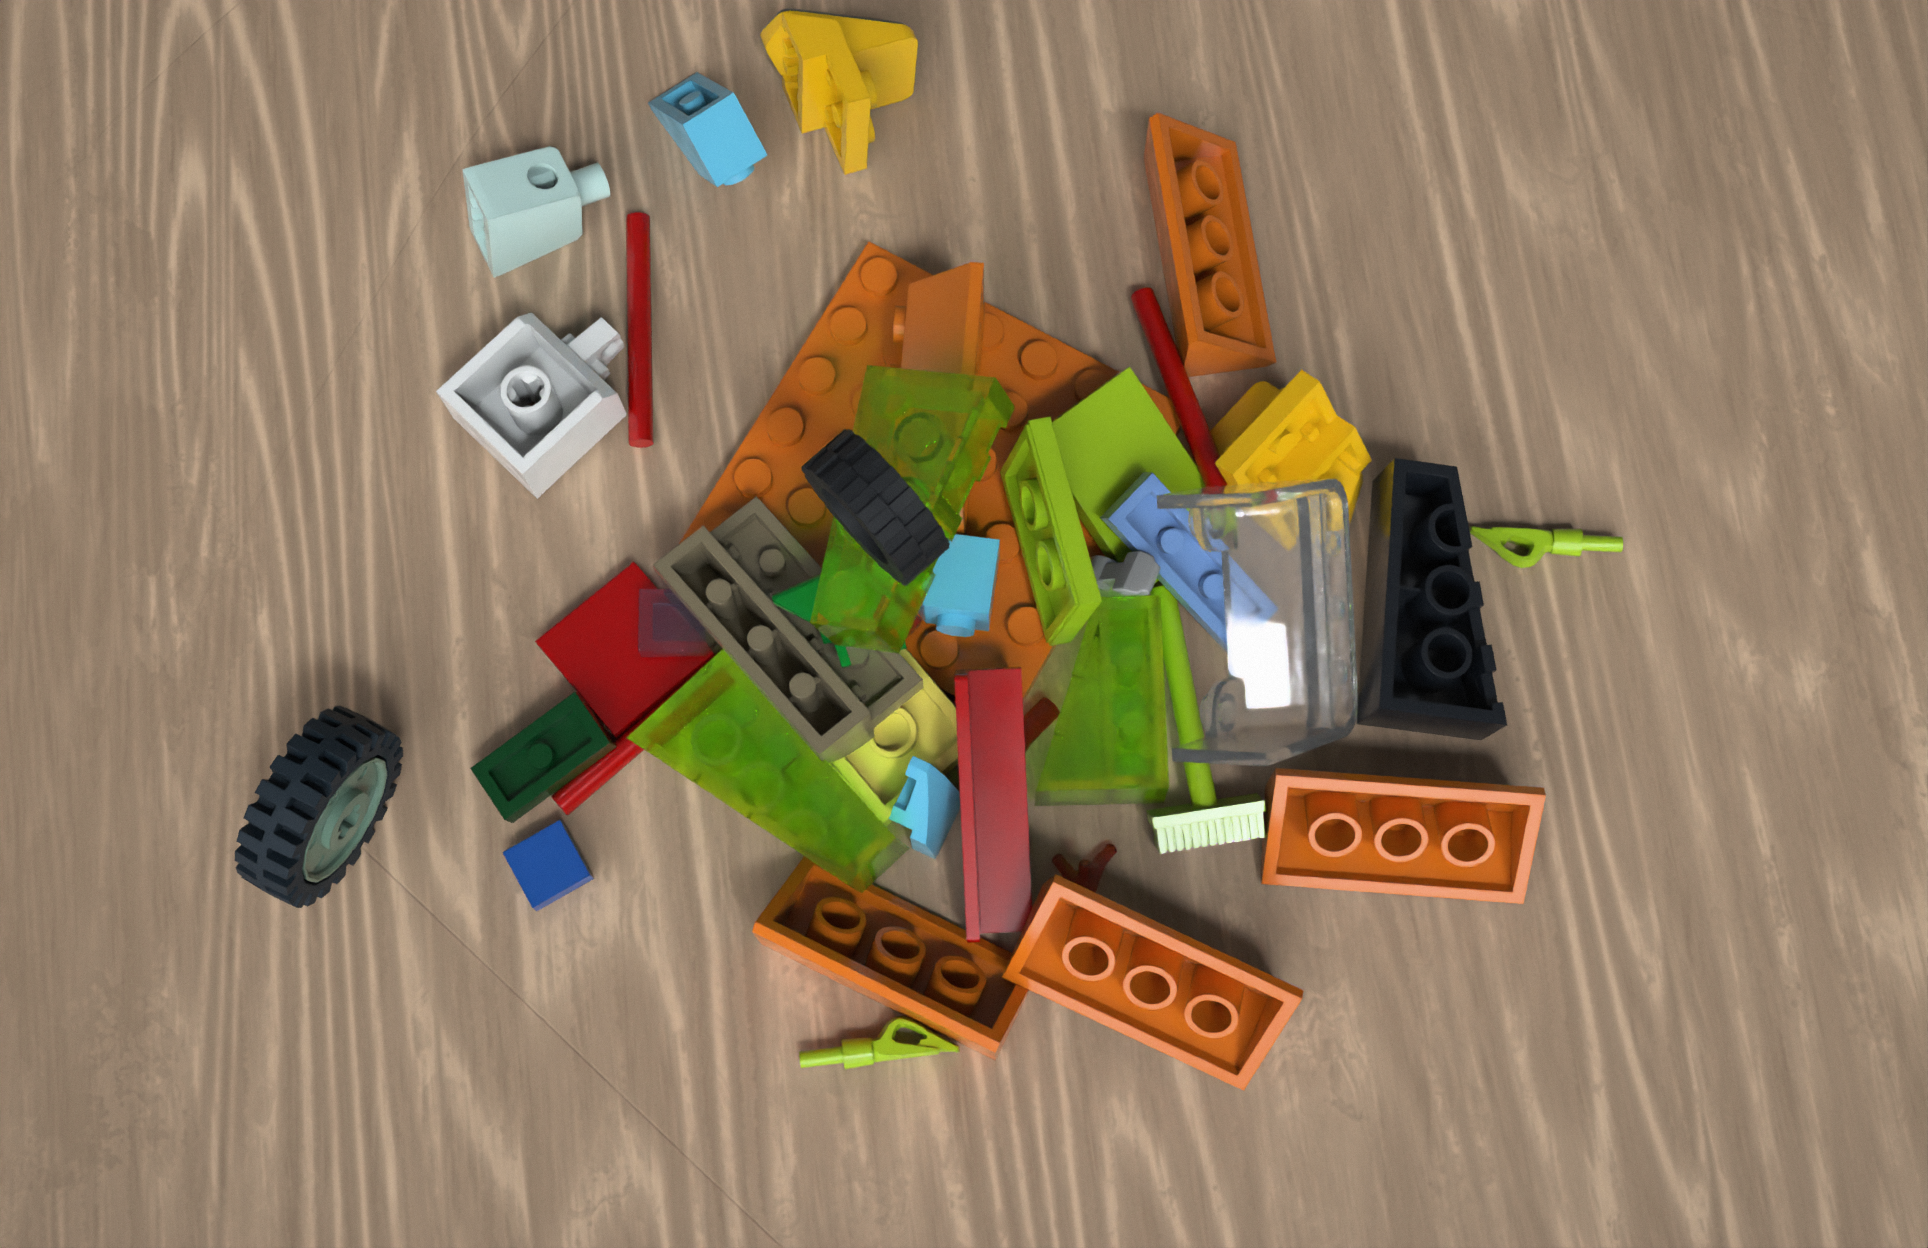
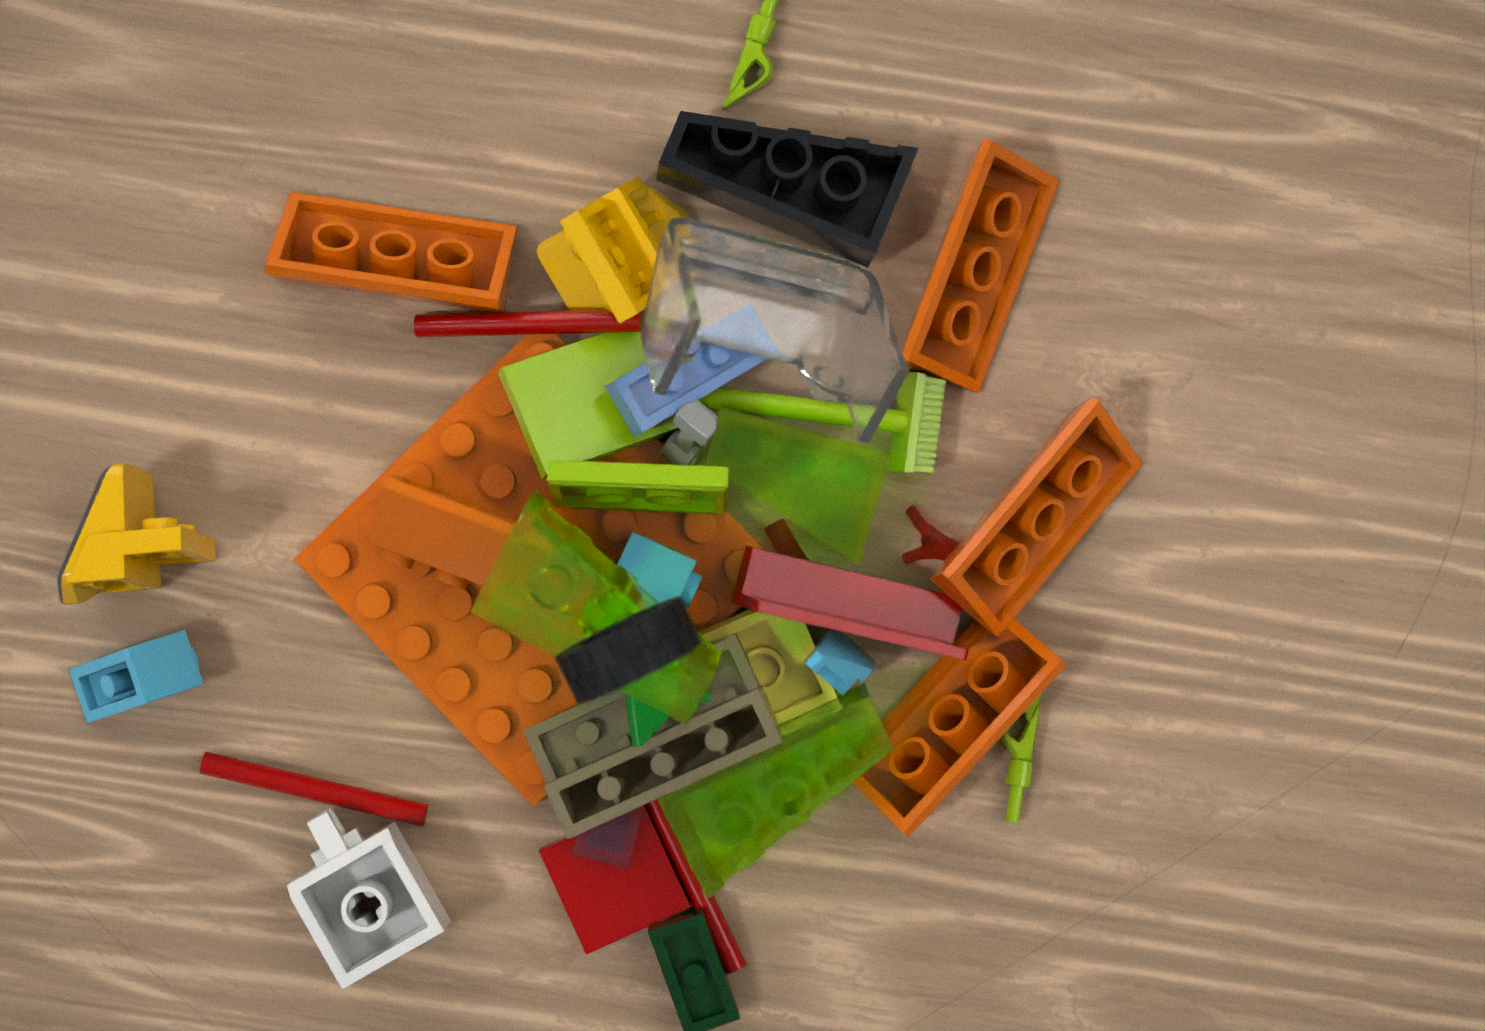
camera: 70 degrees left, 15 degrees up
(528, 205) = (175, 881): light aqua torso -> none
(548, 865) = (786, 990): blue tile -> none

